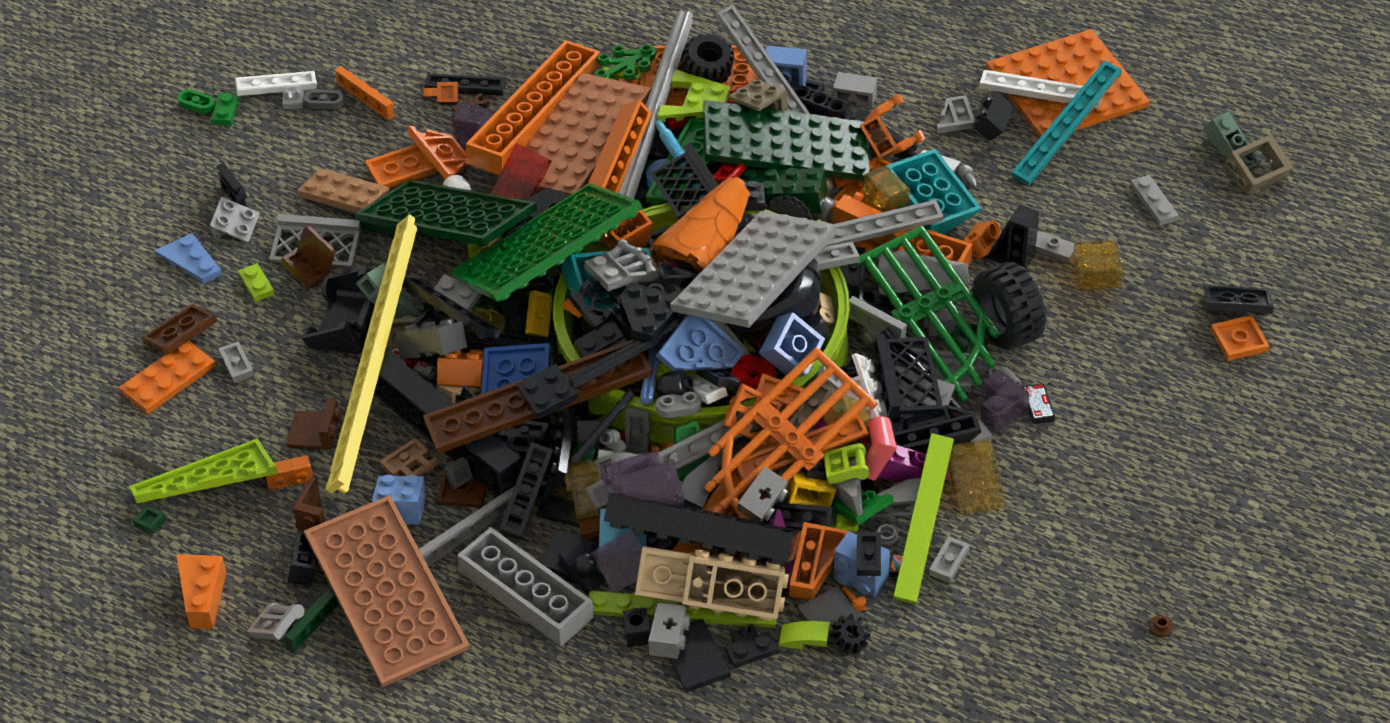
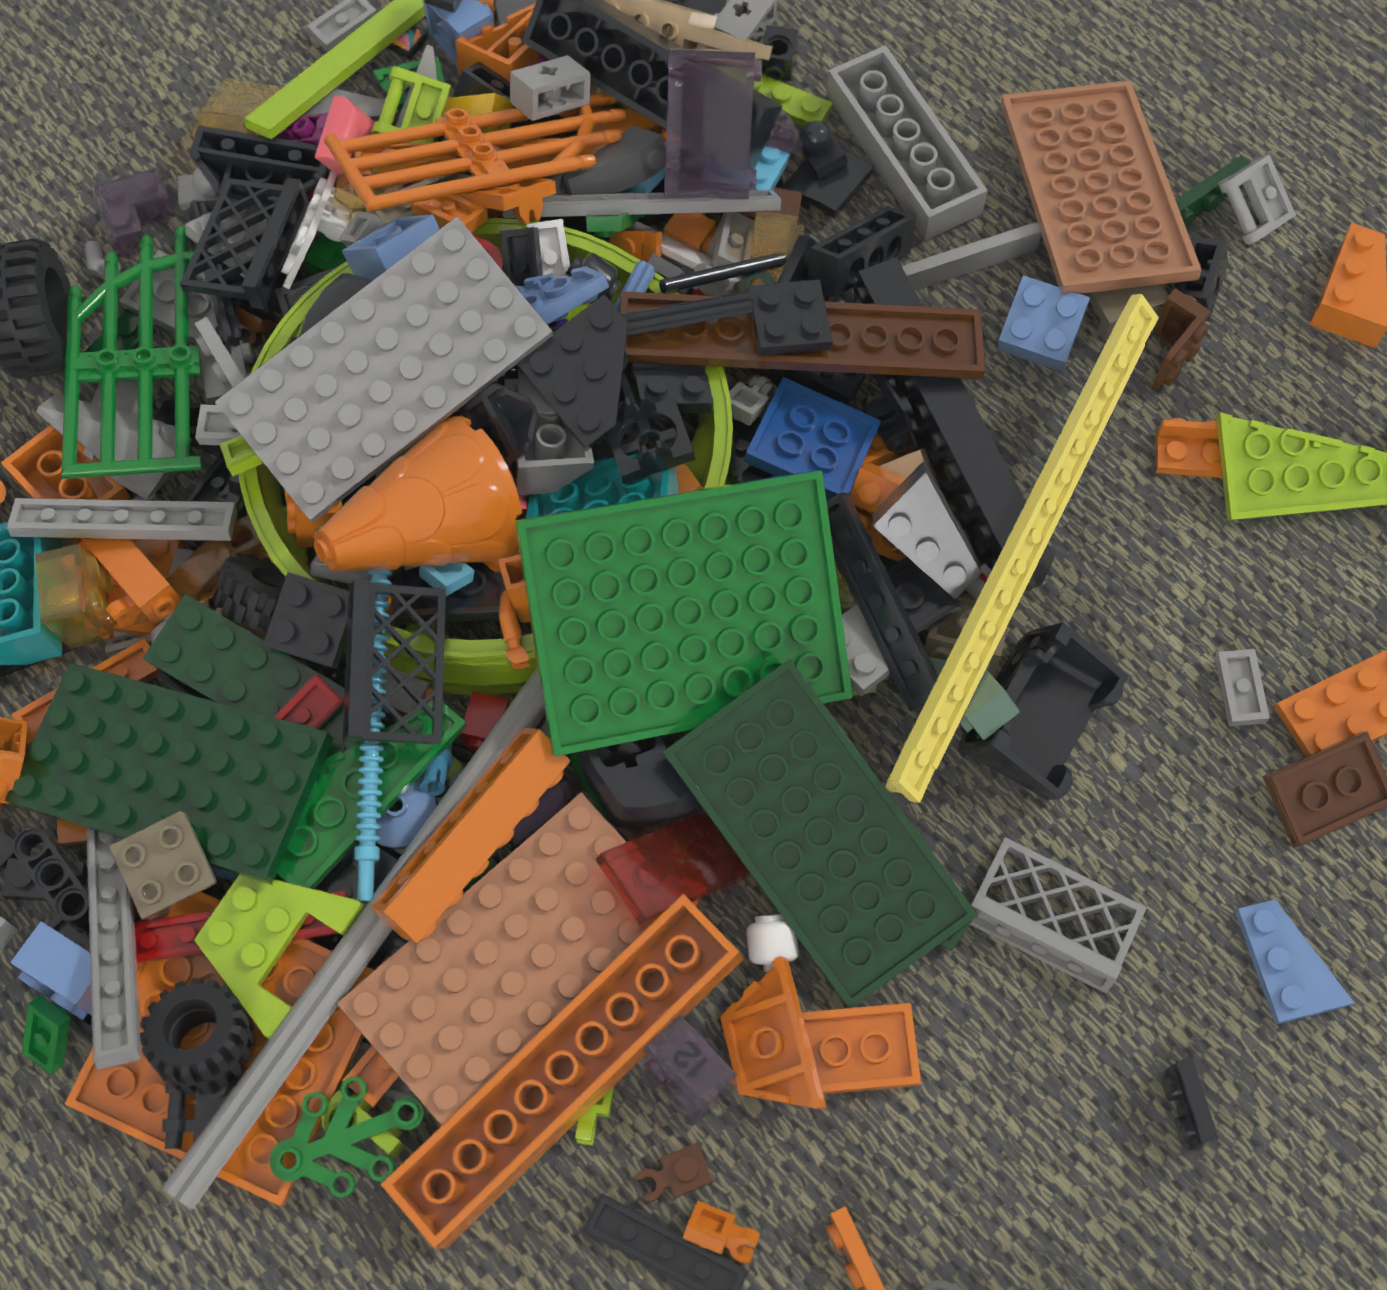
camera: 160 degrees left, 20 degrees up
(233, 220) = (1196, 1024): light grey hinge -> none
(256, 282) = (1178, 862): lime plate -> none
(311, 259) = (1085, 847): reddish brown bracket -> none
(315, 429) = (1137, 510): reddish brown bracket -> none
(341, 190) = (980, 1019): medium nougat plate -> none
(407, 457) = (1014, 410): medium nougat plate -> none
(615, 270) = (608, 464): light grey plate -> none
(678, 405) = (603, 243): light grey plate -> none
(1039, 404) = (82, 210): tile -> none

